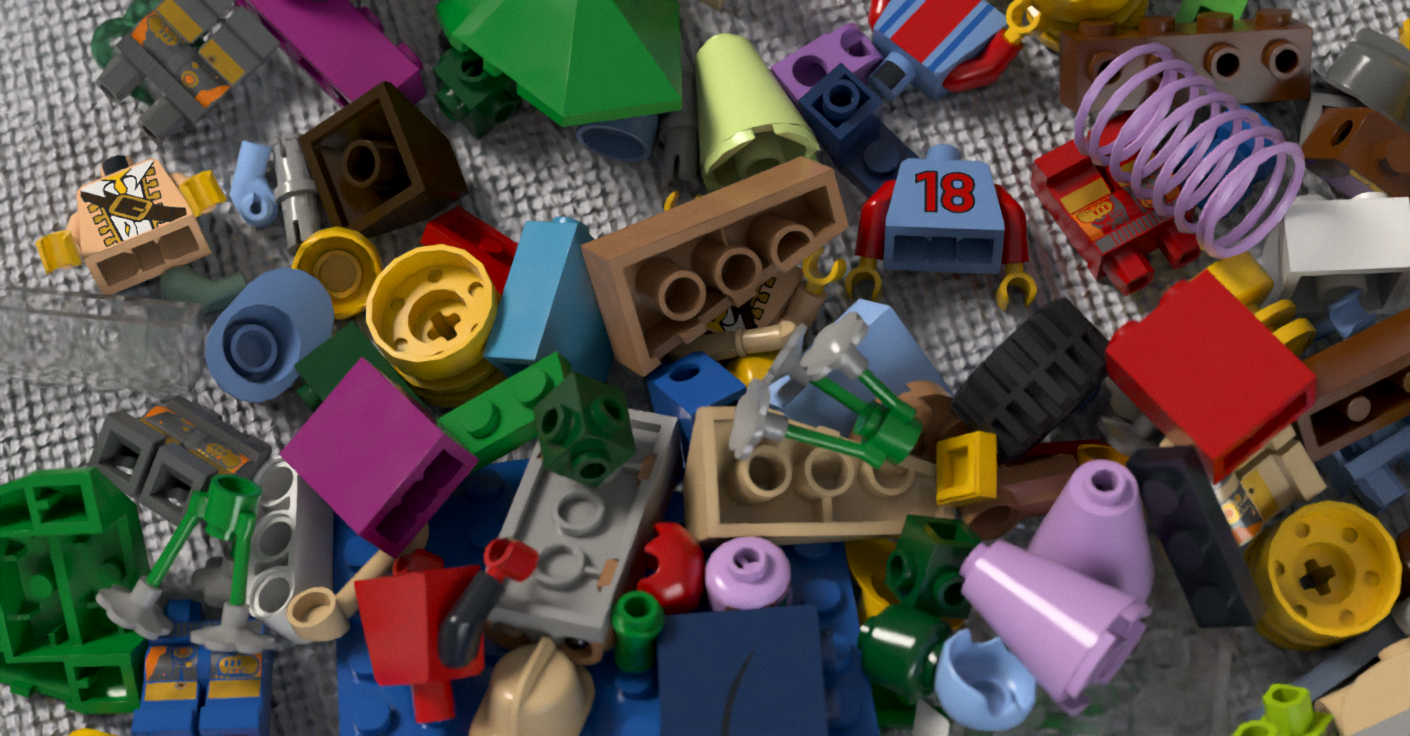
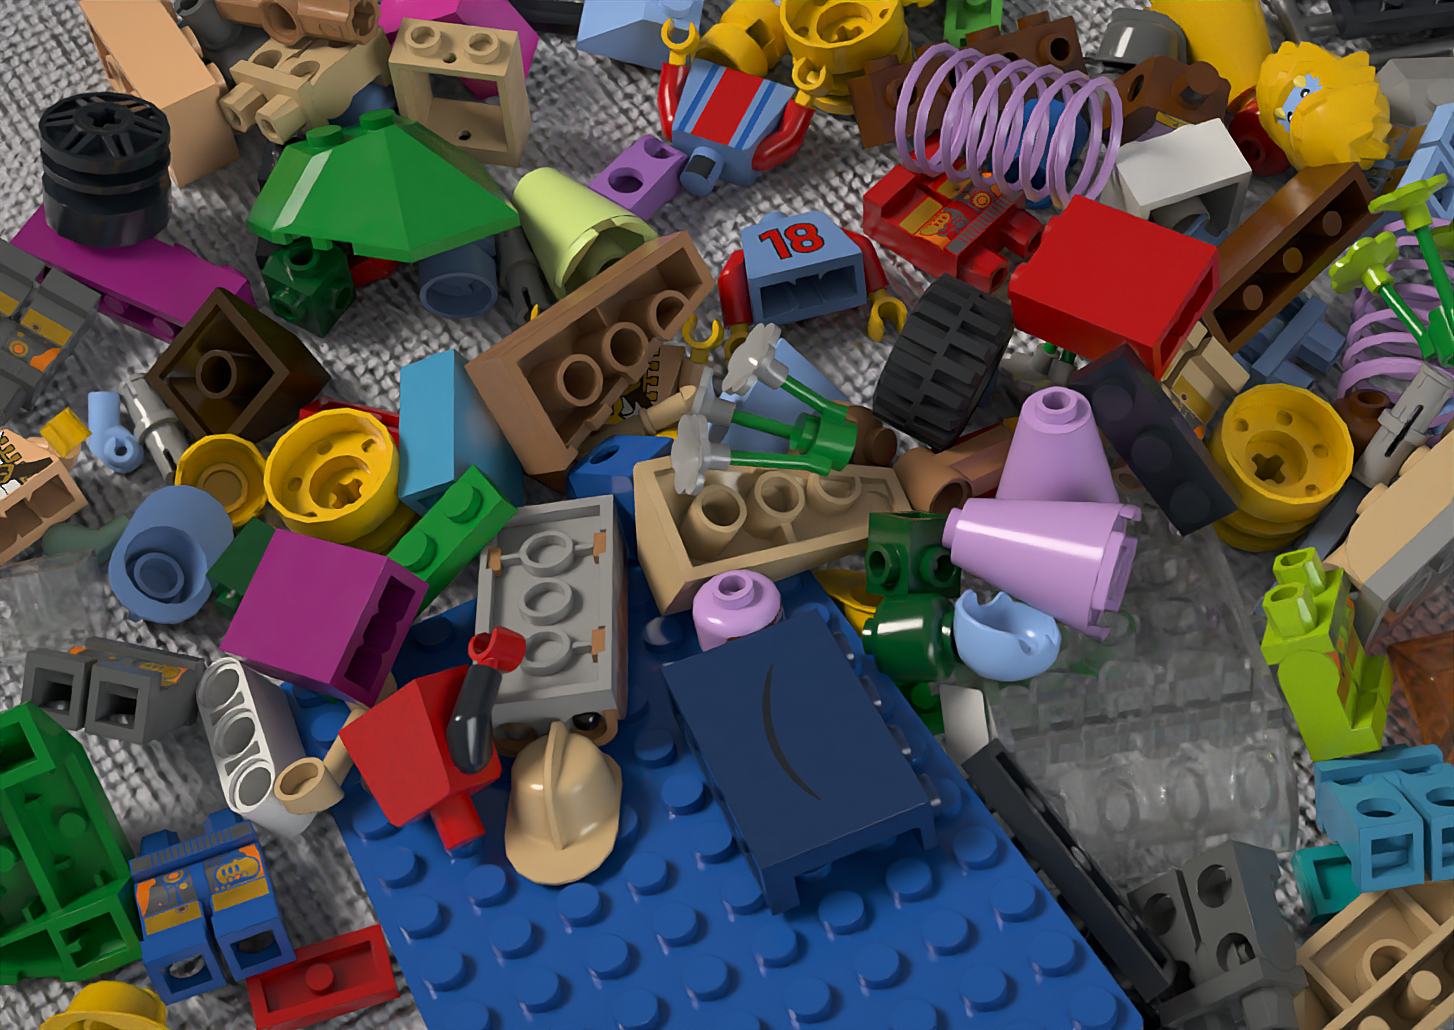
camera: 20 degrees left, 10 degrees down
(229, 516) = (187, 711): plant -> none
(584, 430) = (528, 518): dark green brick -> none
(636, 622) = (644, 678): green pin -> none
(678, 567) = (661, 632): red hair -> none
(850, 128) = (678, 203): dark blue slope -> none
(966, 469) = (910, 457): yellow tile -> none

